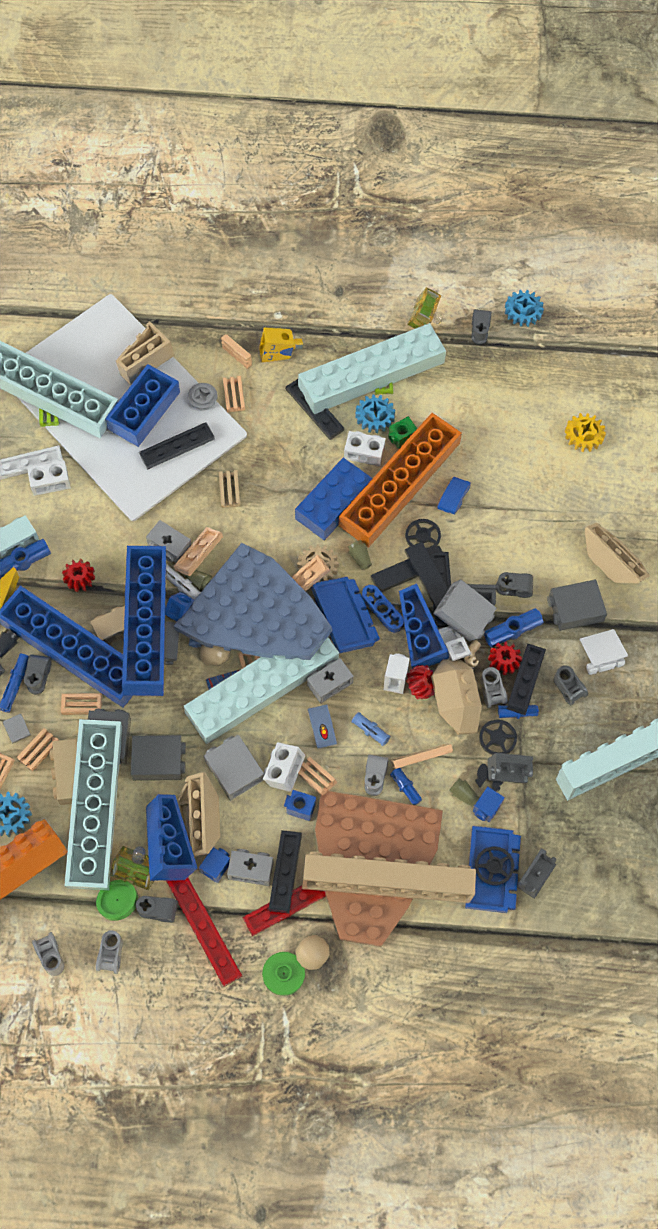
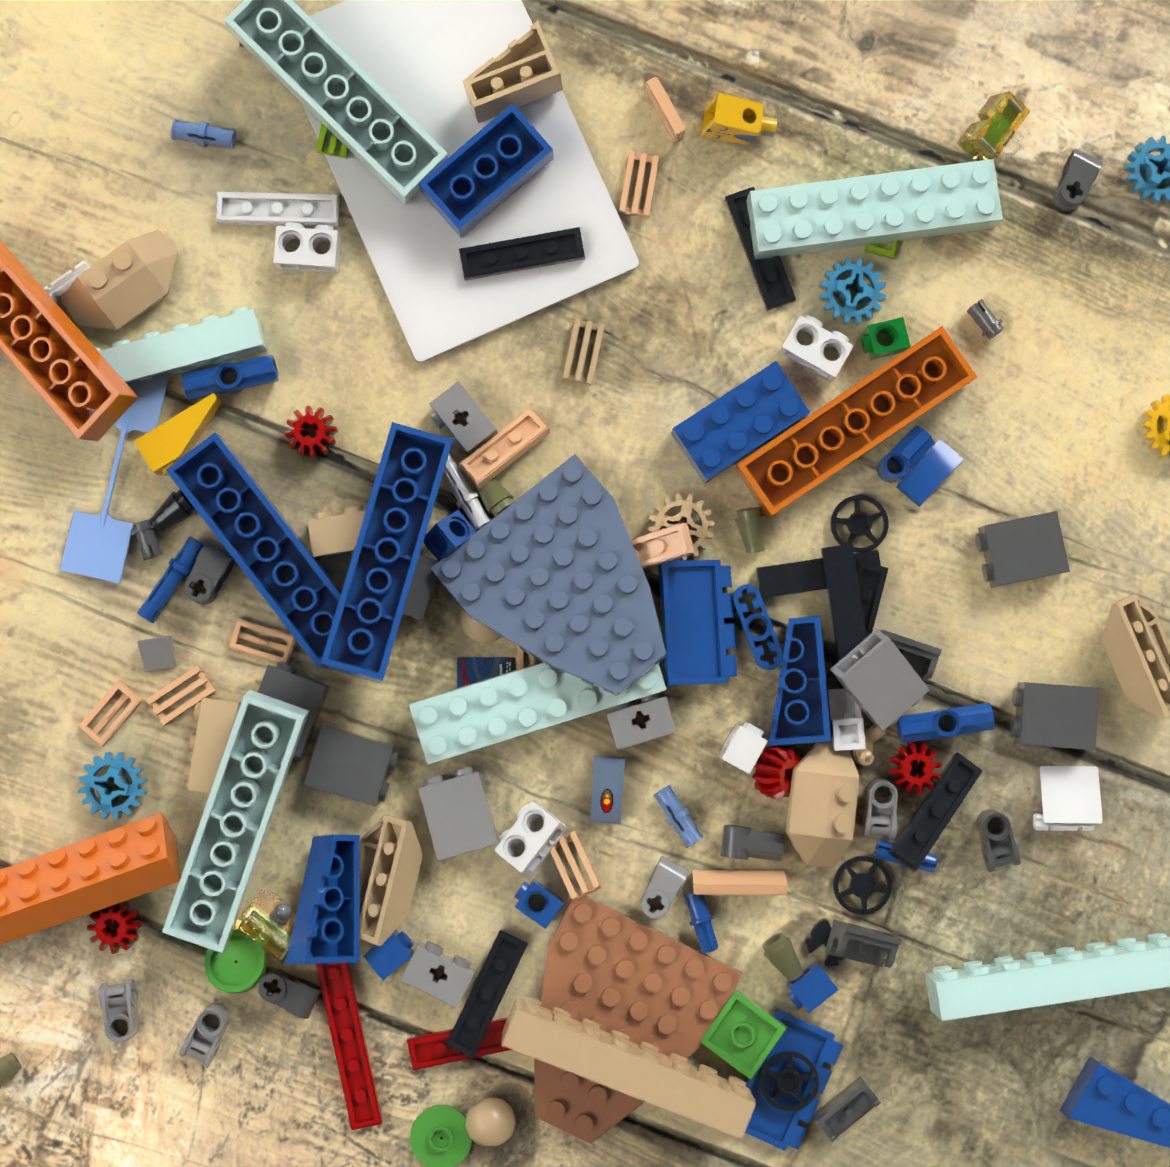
camera: 15 degrees right, 20 degrees up
(27, 908) = (125, 931): none -> red gear
(207, 390) = (597, 168): light grey gear -> none
(417, 732) = (743, 842): none -> dark grey piece
(436, 490) = (906, 453): none -> blue piece
(456, 844) = (744, 1034): none -> bright green plate
(458, 409) = (985, 319): none -> dark grey pin
(516, 584) = (976, 655): dark grey piece -> none
(523, 520) = (1022, 549): none -> dark grey brick

